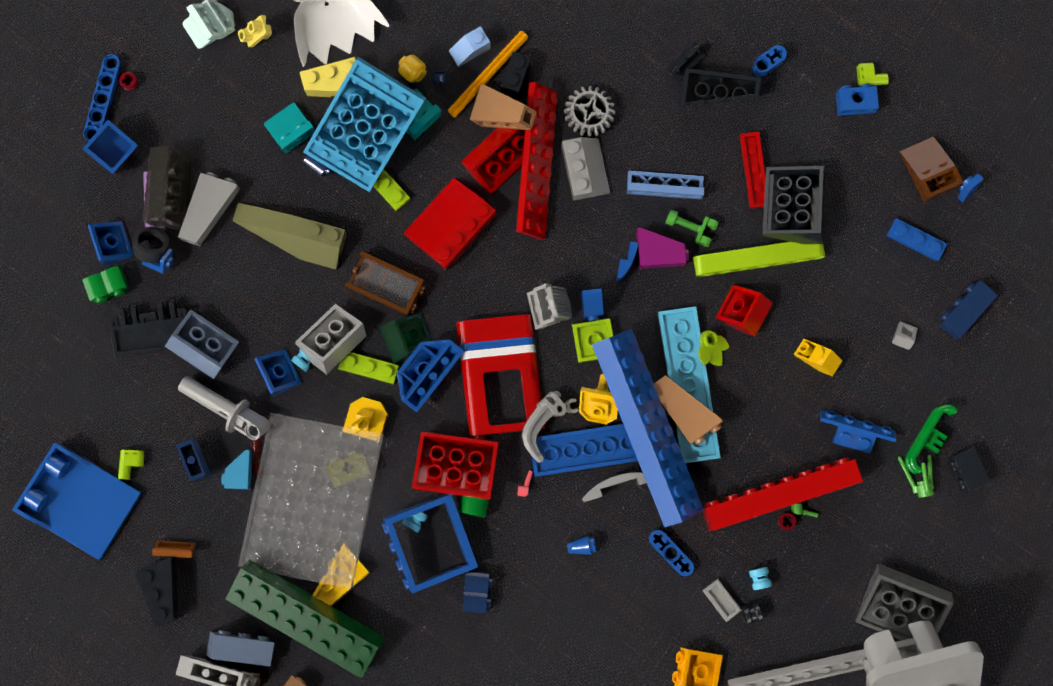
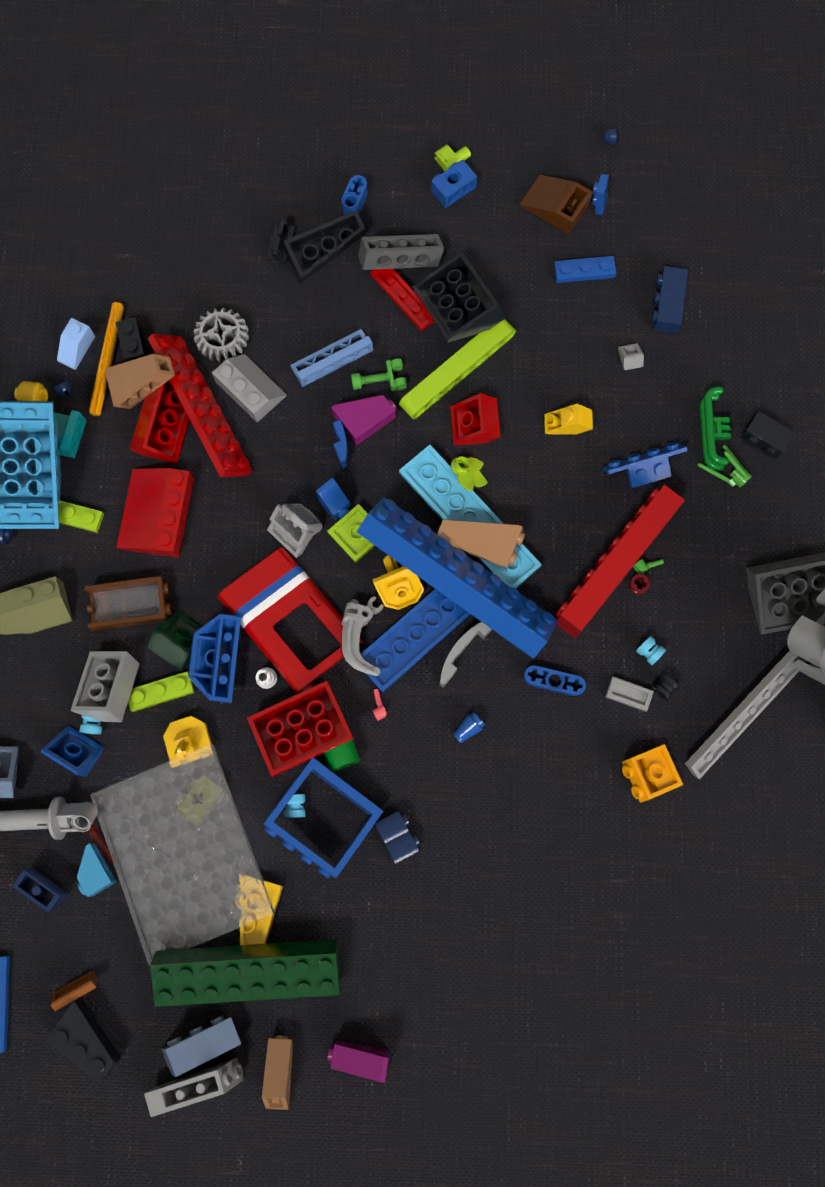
camera: 30 degrees left, 5 degrees down
(454, 408) = (266, 677): none -> white pin
(774, 134) = (400, 251): none -> dark grey brick
(1014, 139) = (610, 136): none -> dark blue hinge

